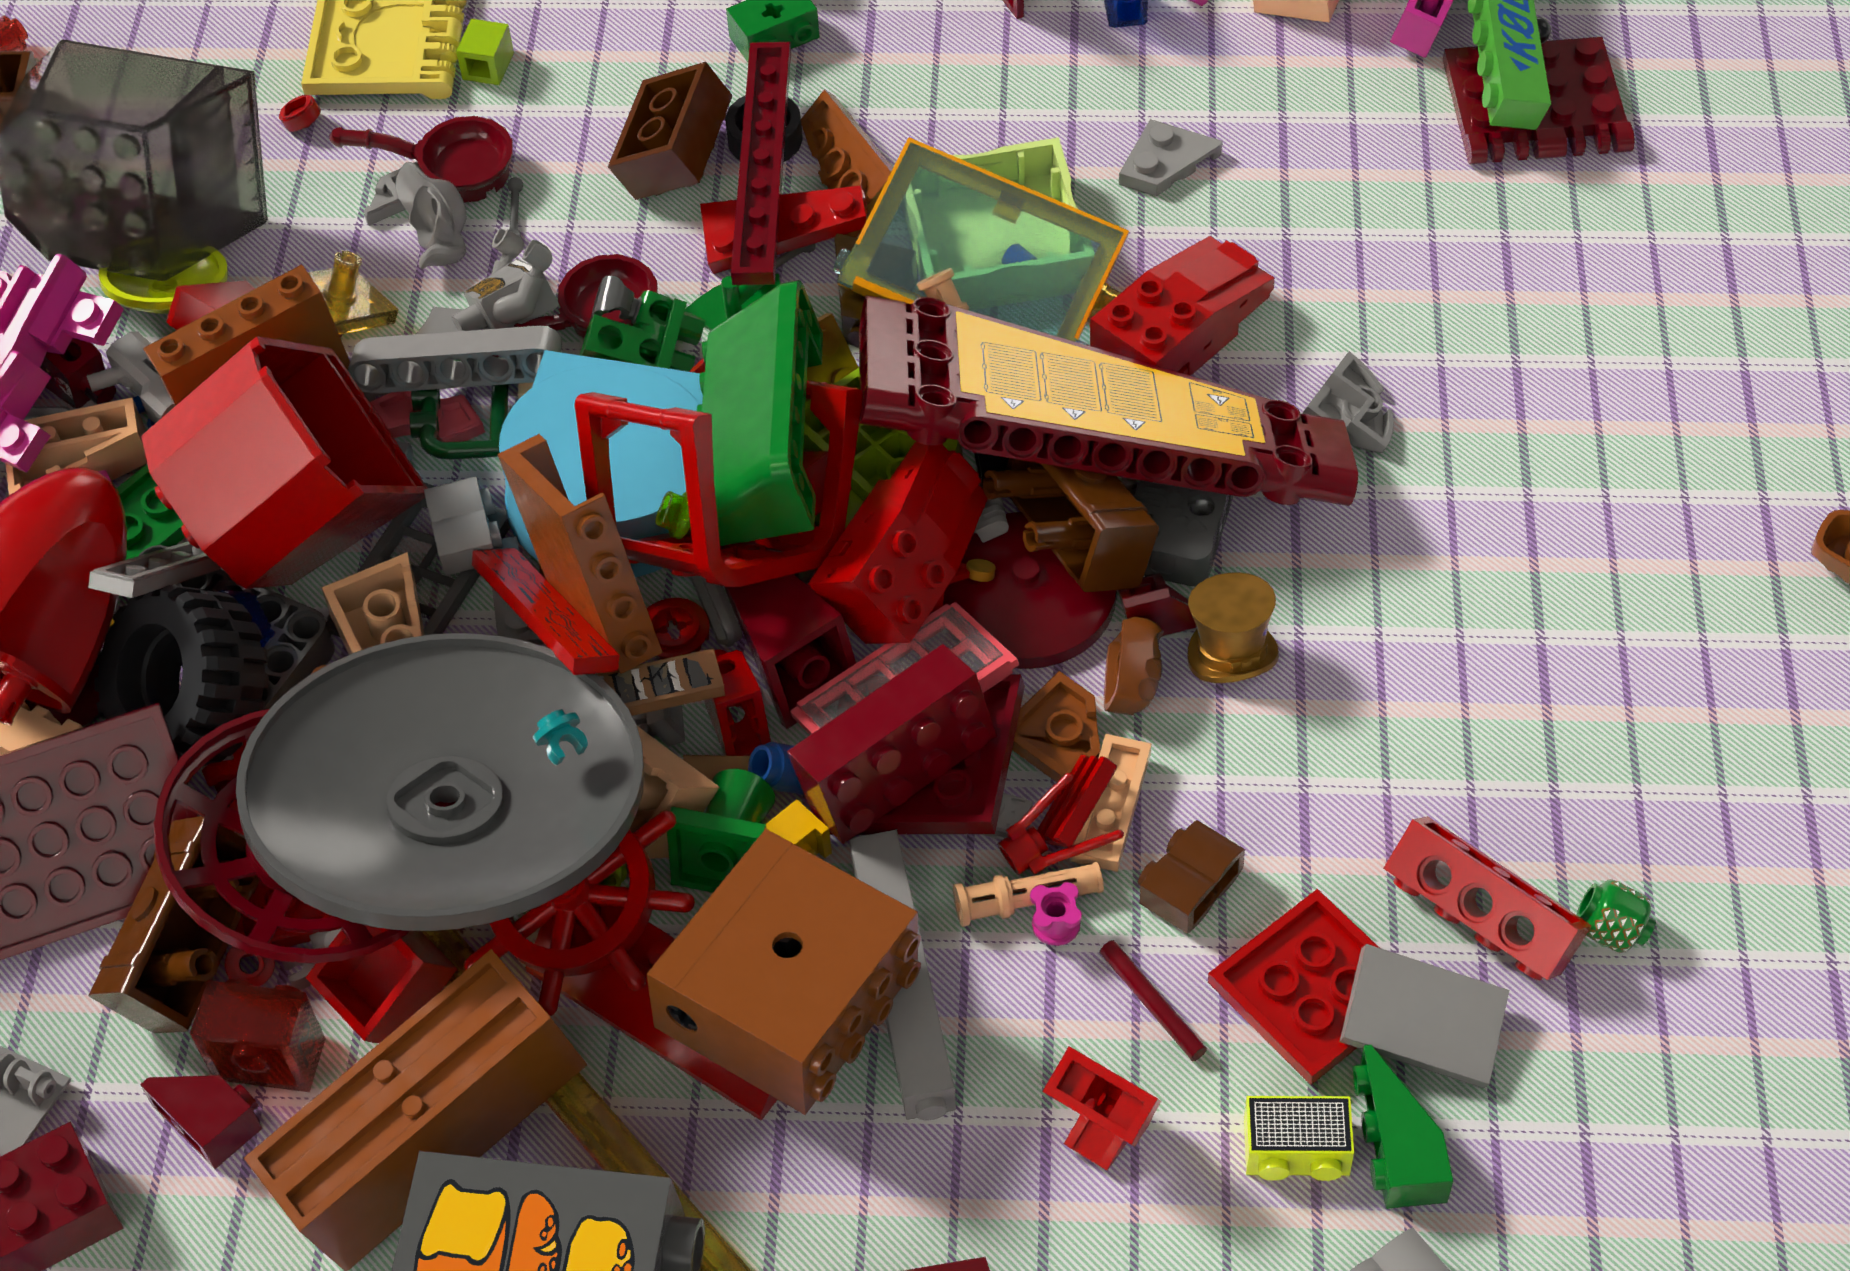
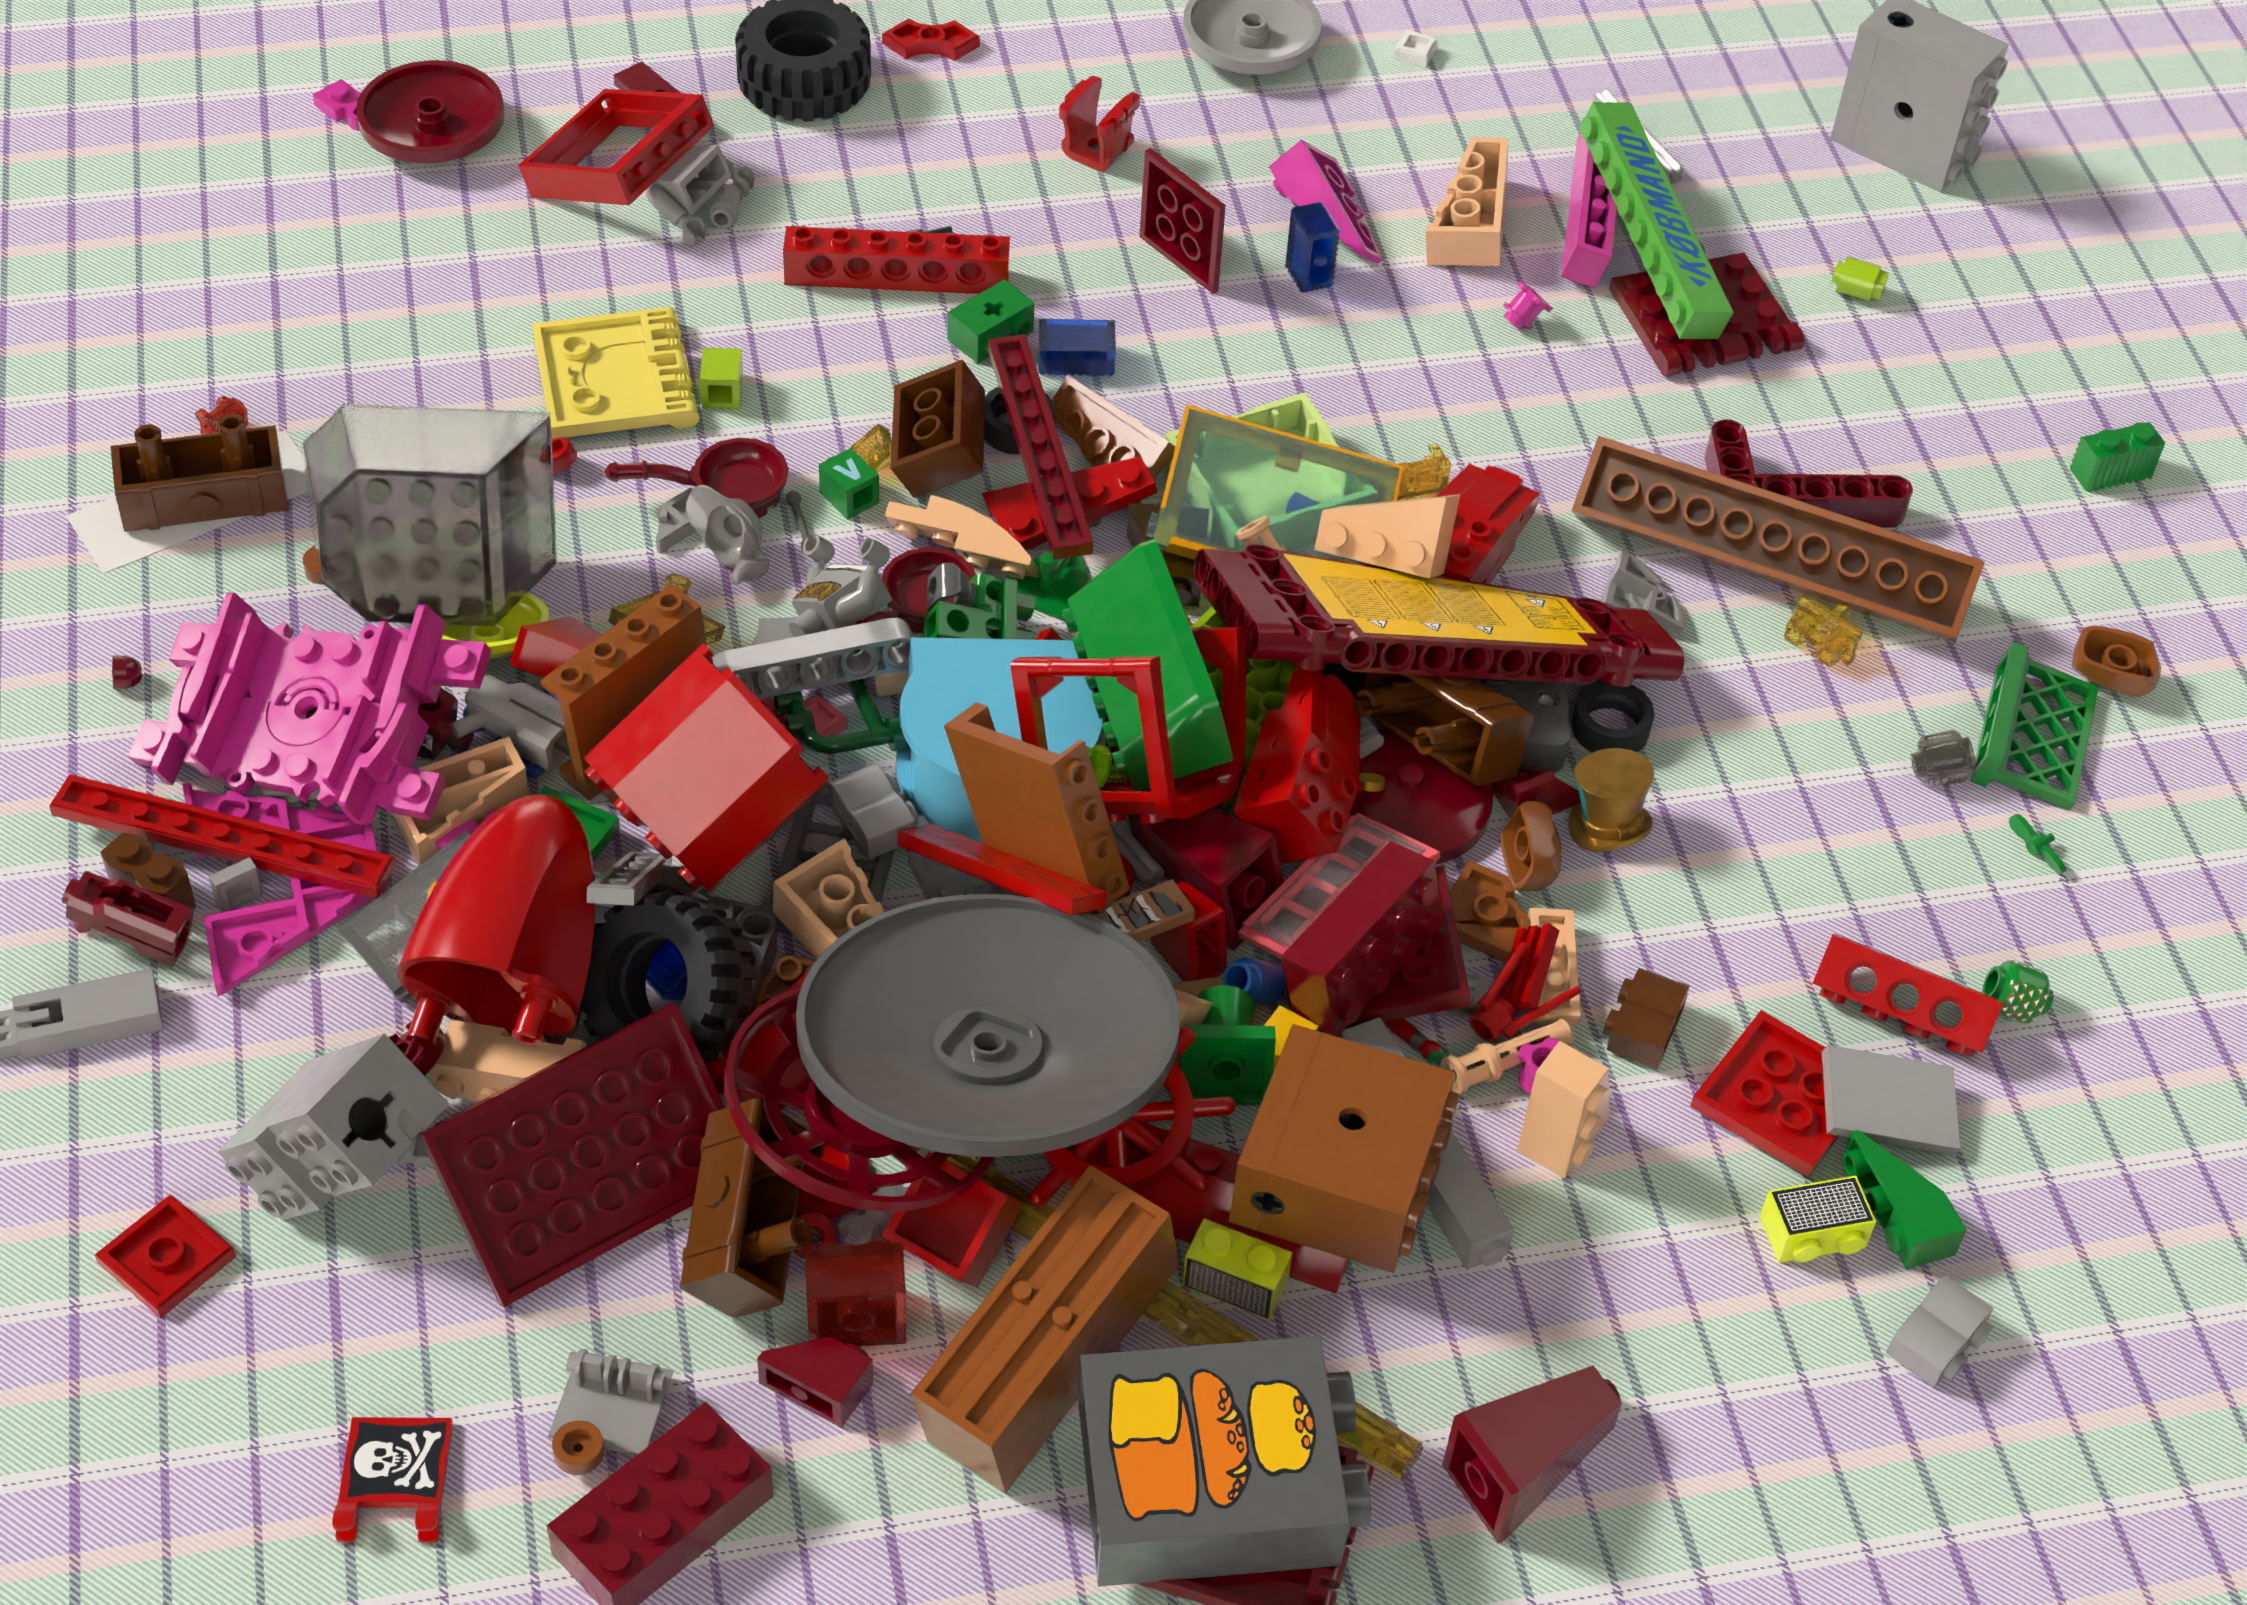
camera: 20 degrees left, 5 degrees down
(558, 728) = (1088, 961): teal plate -> none
(570, 177) = (849, 483): none -> green brick
(603, 145) = (875, 447): none -> clear yellow plate
(657, 1077) = (1237, 1269): none -> neon yellow brick
(664, 247) = (969, 532): none -> light nougat slope
(850, 60) = (1076, 347): none -> clear blue brick
(949, 871) = (1416, 1039): none -> red piece
(1051, 968) = (1565, 1110): none -> light nougat wedge
(1081, 306) = (1394, 535): none -> light nougat wedge
(1108, 1106) = (1654, 1219): red tile -> none
(1153, 243) = (1425, 476): none -> clear yellow hinge
(1153, 1000) = (1657, 1136): dark red bar -> none
(1165, 156) = (1395, 401): light grey wing -> none
(1270, 564) = (1607, 696): none -> black tyre
(1337, 70) = (1525, 307): none -> dark pink brick
(1520, 365) = (1778, 539): none -> dark orange brick
(1544, 468) = (1826, 629): none -> clear yellow hips
(1568, 319) = (1867, 498): none -> dark red beam
(1624, 636) = (1943, 758): none -> clear smoke head
(1702, 747) = (2036, 843): none -> green piece
(1708, 604) = (2000, 725): none -> green fence
(1721, 81) = (1860, 279): none -> lime brick

